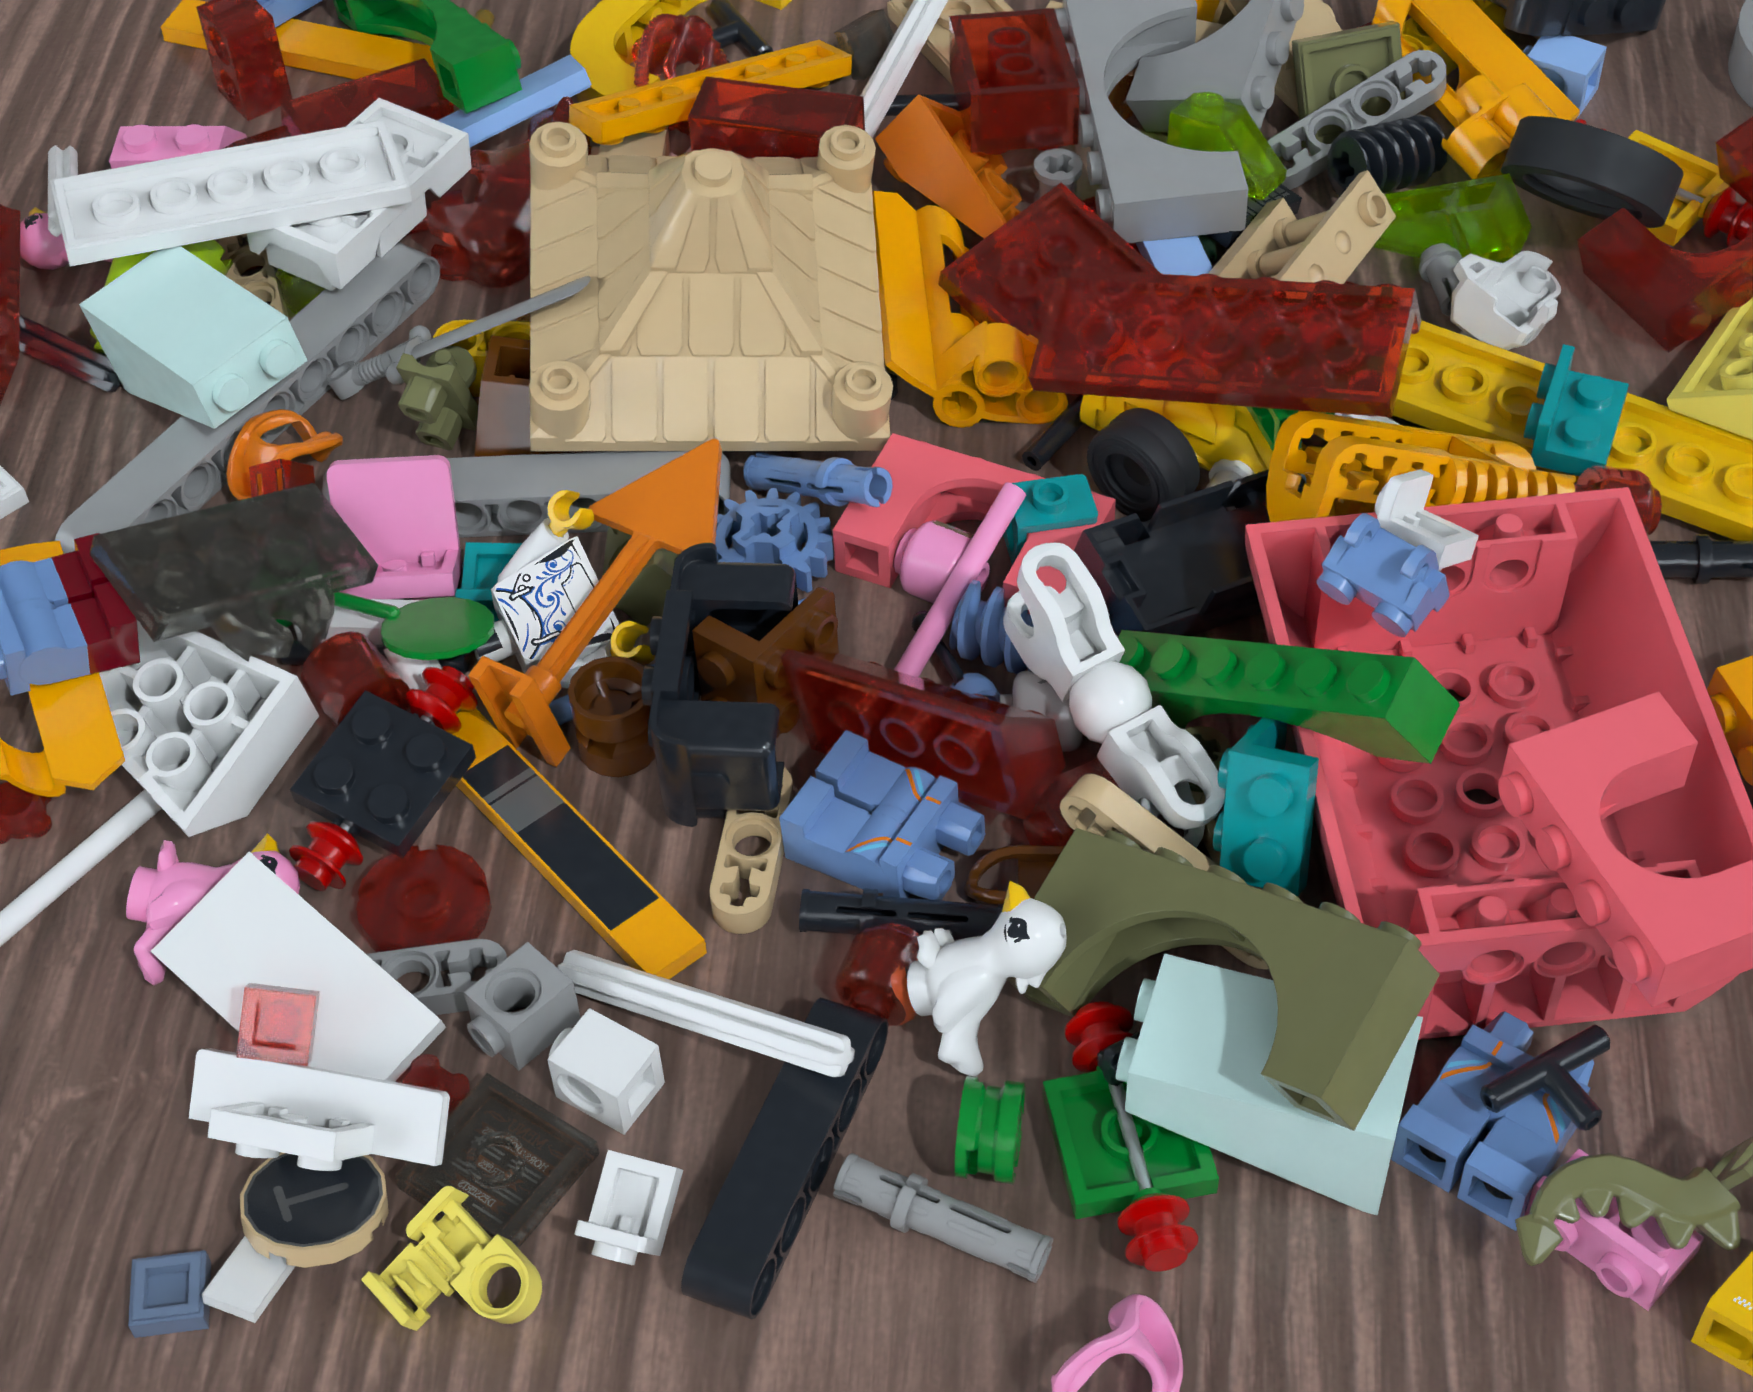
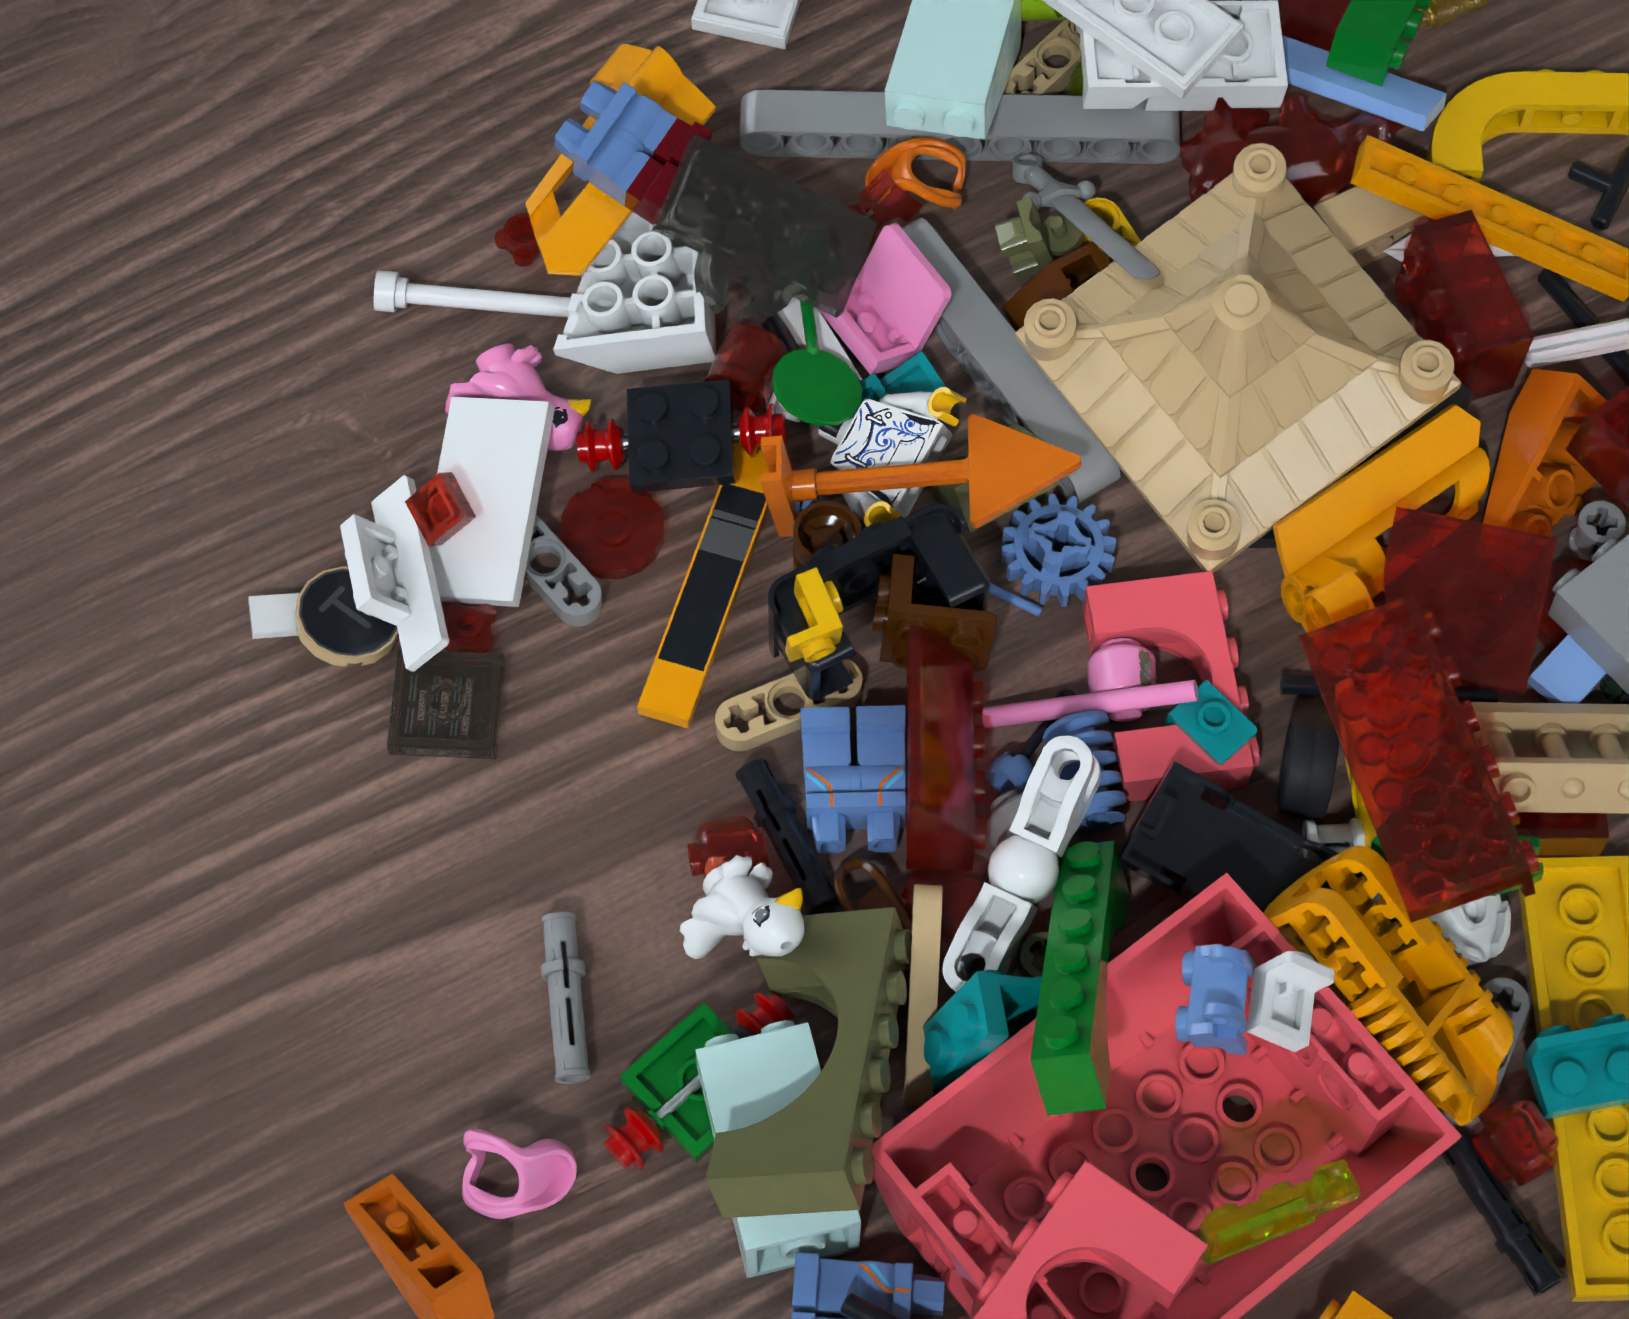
camera: 55 degrees right, 15 degrees up
(169, 1294) = (246, 575): sand blue tile -> none
(450, 1258) = (363, 718): light yellow piece -> none
(518, 982) = (570, 661): light grey brick -> none
(605, 1070) = (545, 724): white brick -> none
(631, 1208) = (453, 803): white bracket -> none
(671, 42) = (1529, 151): clear red piece -> none
(709, 1014) = (616, 758): white axle -> none
(727, 697) = (820, 608): none -> yellow bracket
(781, 1169) = (553, 873): black beam -> none
(832, 481) = (1129, 556): medium blue pin -> none
(989, 1130) = (639, 988): green wheel -> none
(1636, 630) = (1277, 1211): none -> clear neon green hinge

